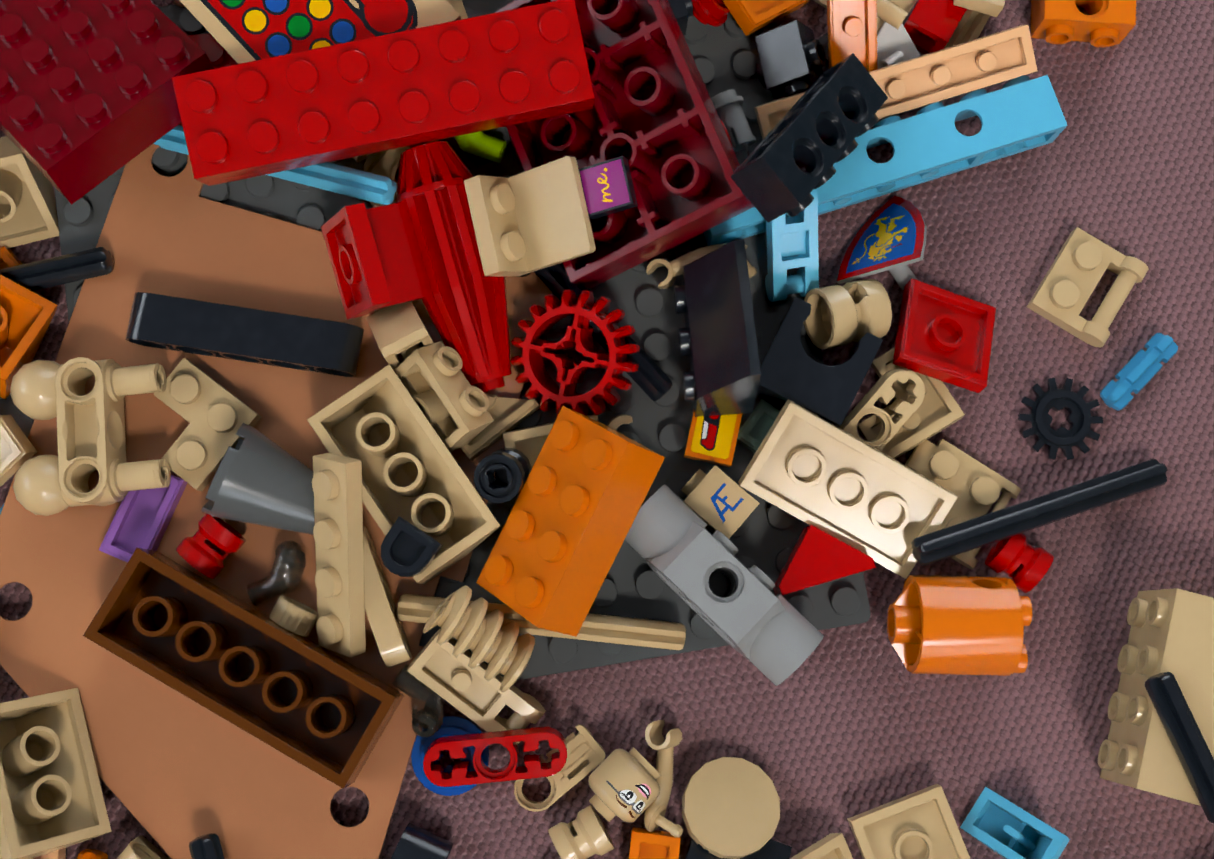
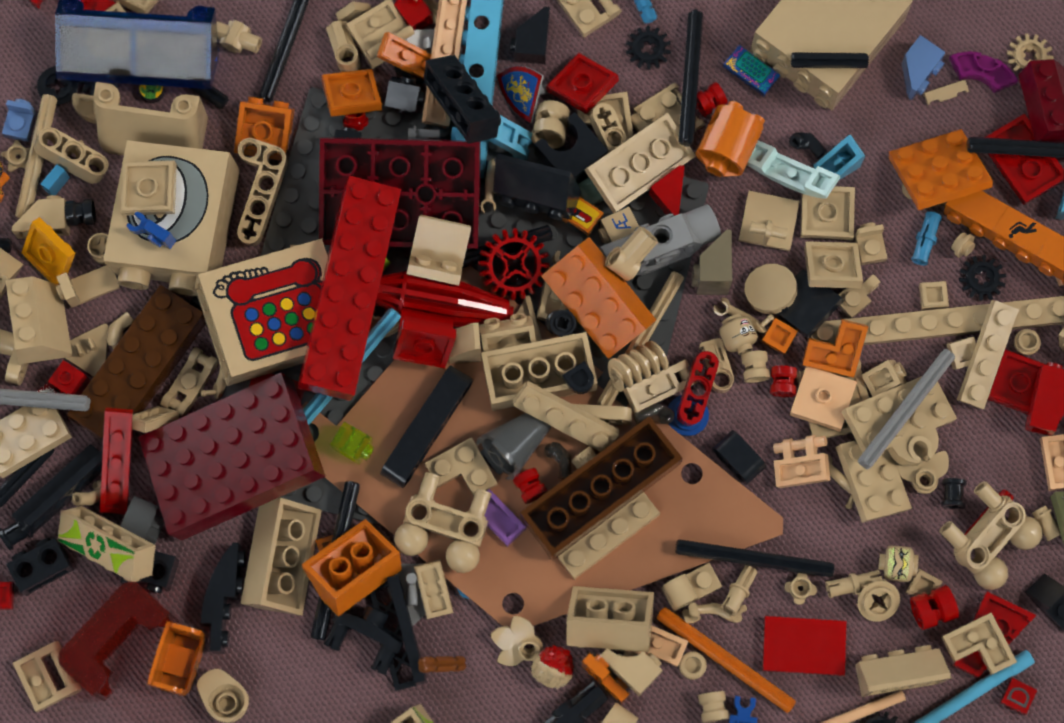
camera: 65 degrees left, 5 degrees down
(168, 229) = (352, 443): none -> clear neon green brick
(179, 717) = (608, 535): none -> tan plate
(608, 187) = (442, 206): magenta tile -> none
(651, 541) = (627, 259): none -> tan piece
(722, 697) = (714, 267): none -> dark tan slope
(851, 752) = (769, 221): none -> tan plate
(952, 764) = (792, 173): none -> light aqua slope
(984, 222) = (531, 38): none -> black slope
(1023, 758) = (808, 141): none -> black arm
(1104, 609) = (751, 70): none -> tile

